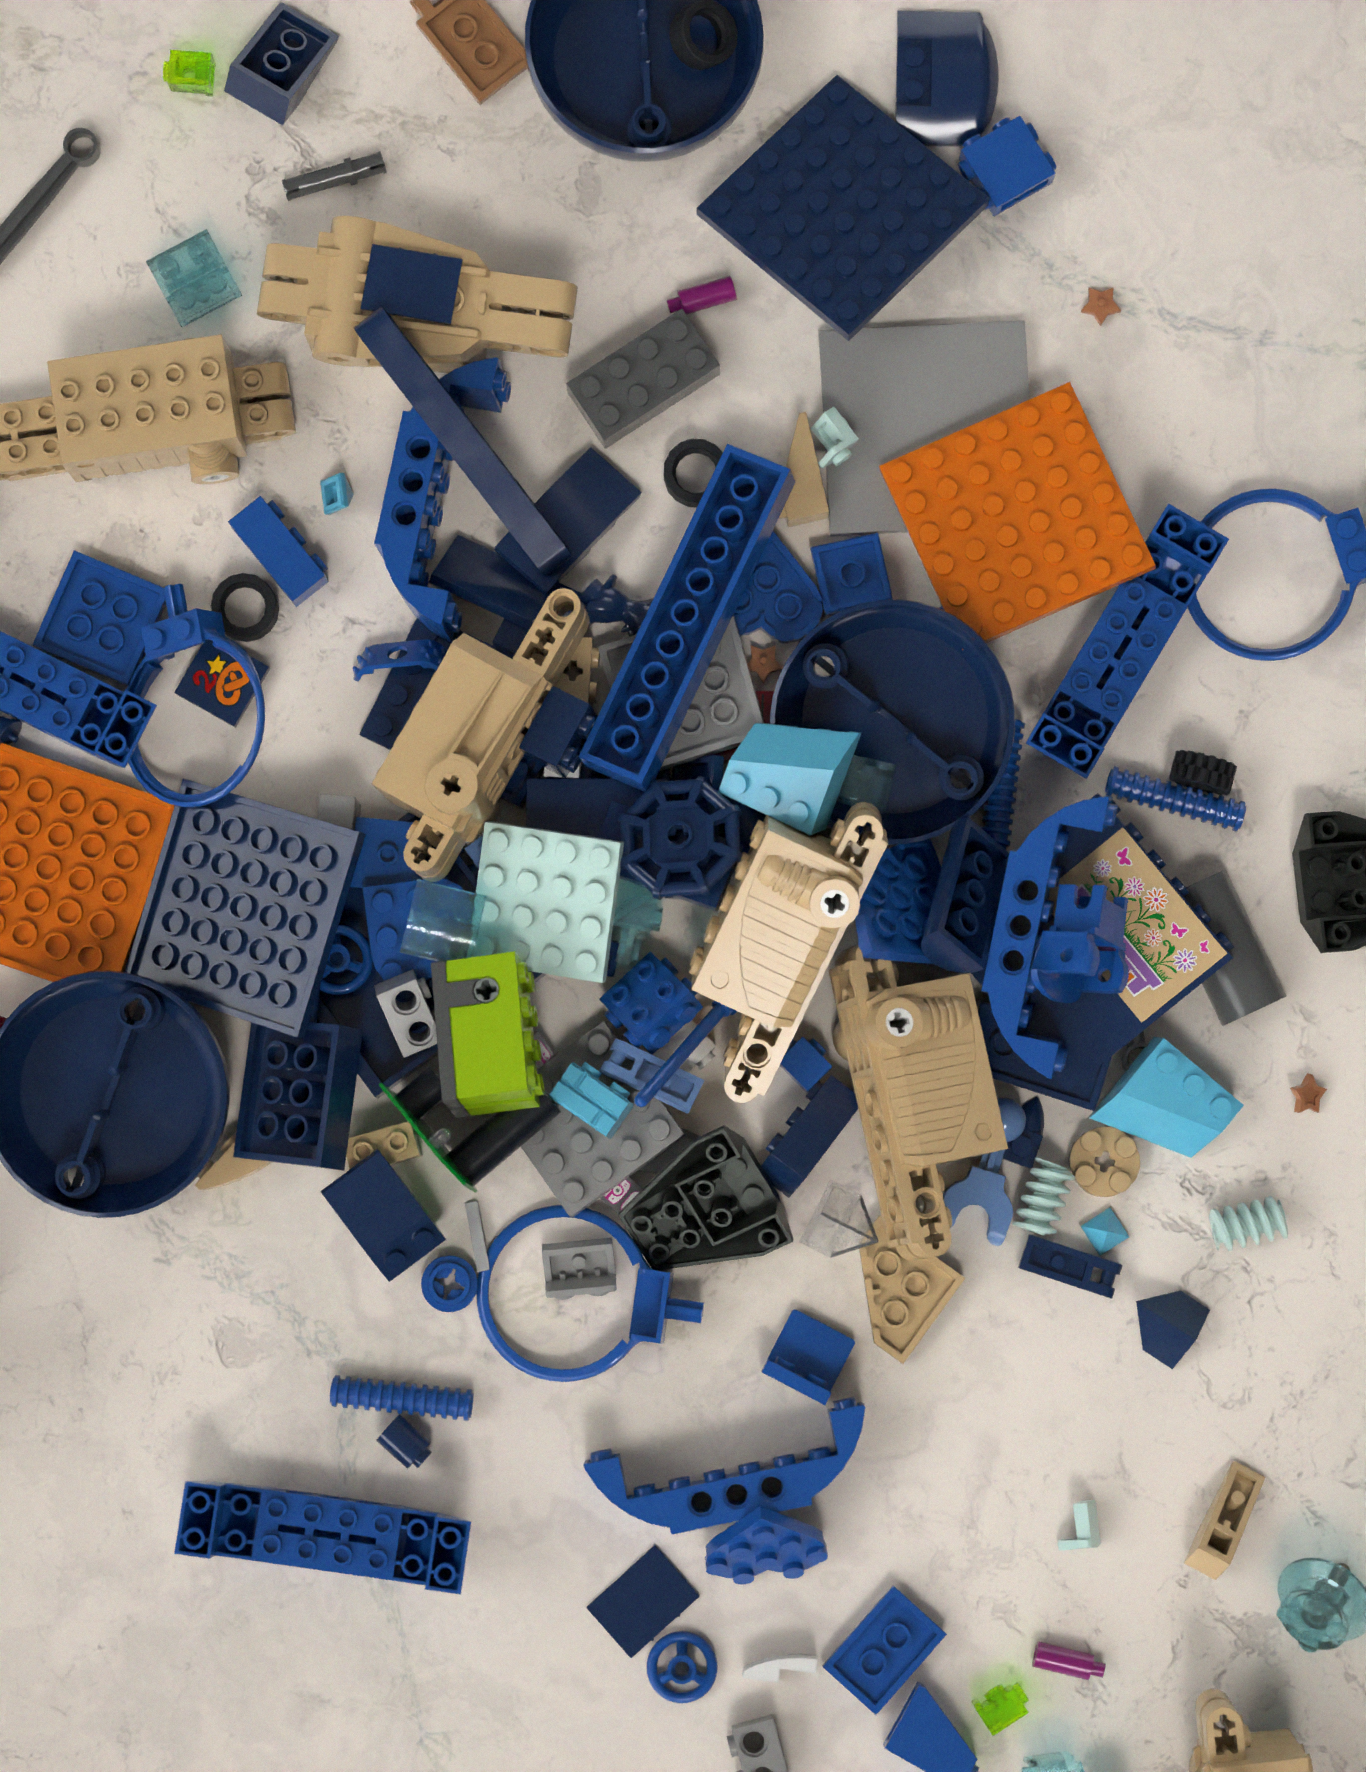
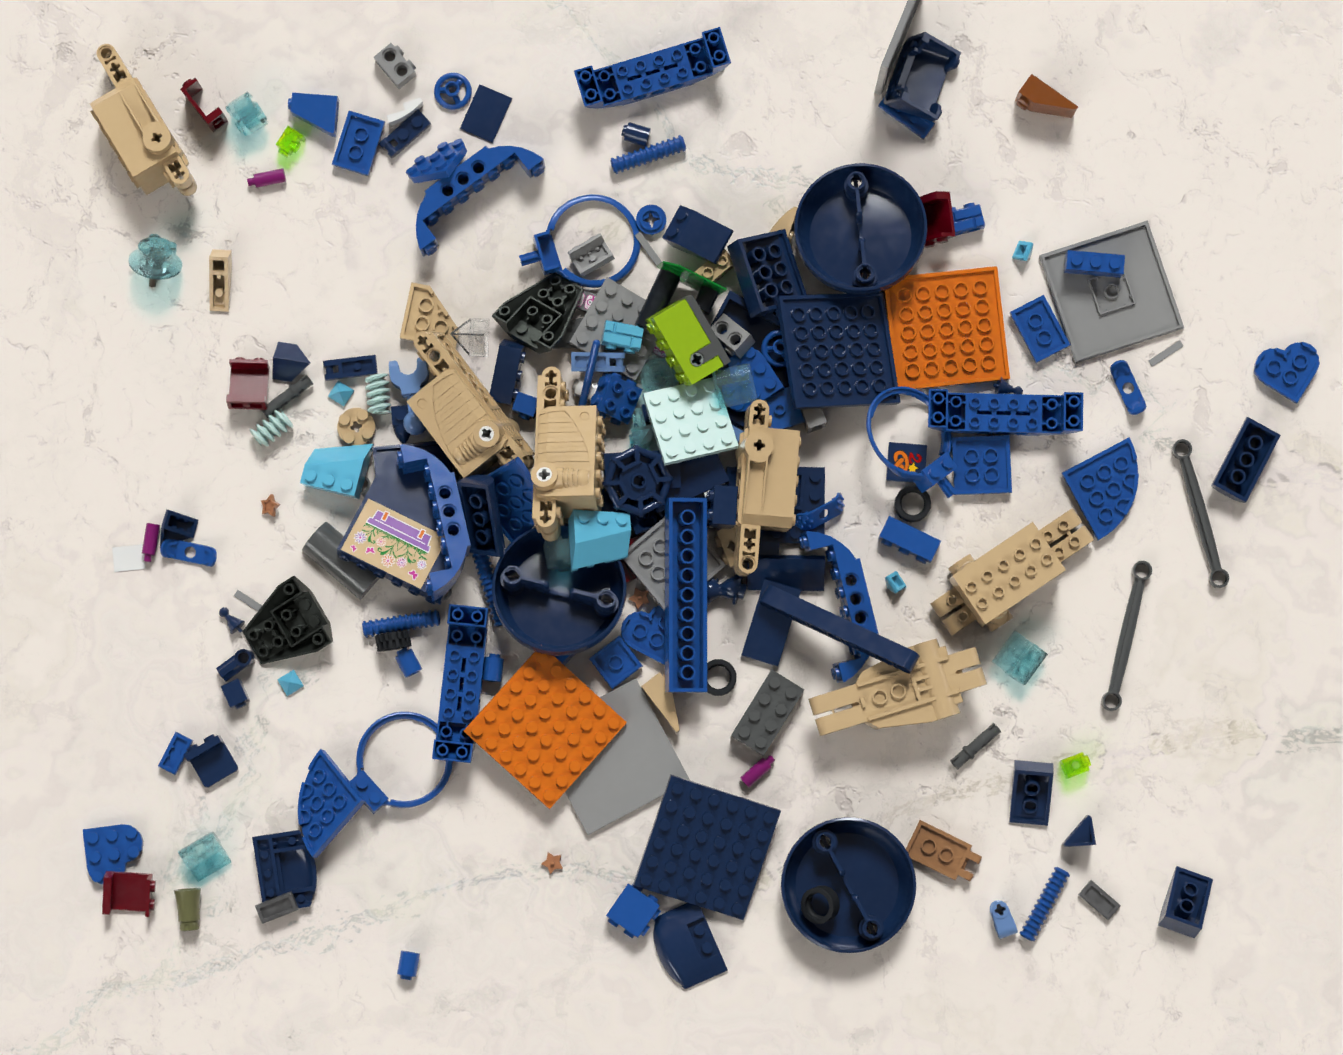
camera: 155 degrees right, 0 degrees up
(411, 283) = (902, 694): dark blue window -> none
(573, 1022) = (650, 371): none -> clear light blue brick
(796, 1630) = (405, 133): none -> dark blue plate
(808, 1356) = (459, 264): blue bracket -> none
(835, 436) = (654, 726): light aqua bracket -> none
(1057, 655) = (493, 668): none -> blue brick
(1069, 952) = (414, 517): blue piece -> none
(1086, 1527) = (286, 245): light aqua tile -> none
(1192, 727) = (408, 662): none -> blue brick
(1192, 1268) = (284, 398): none -> dark grey pin
(1255, 1316) = (248, 384): none -> panel

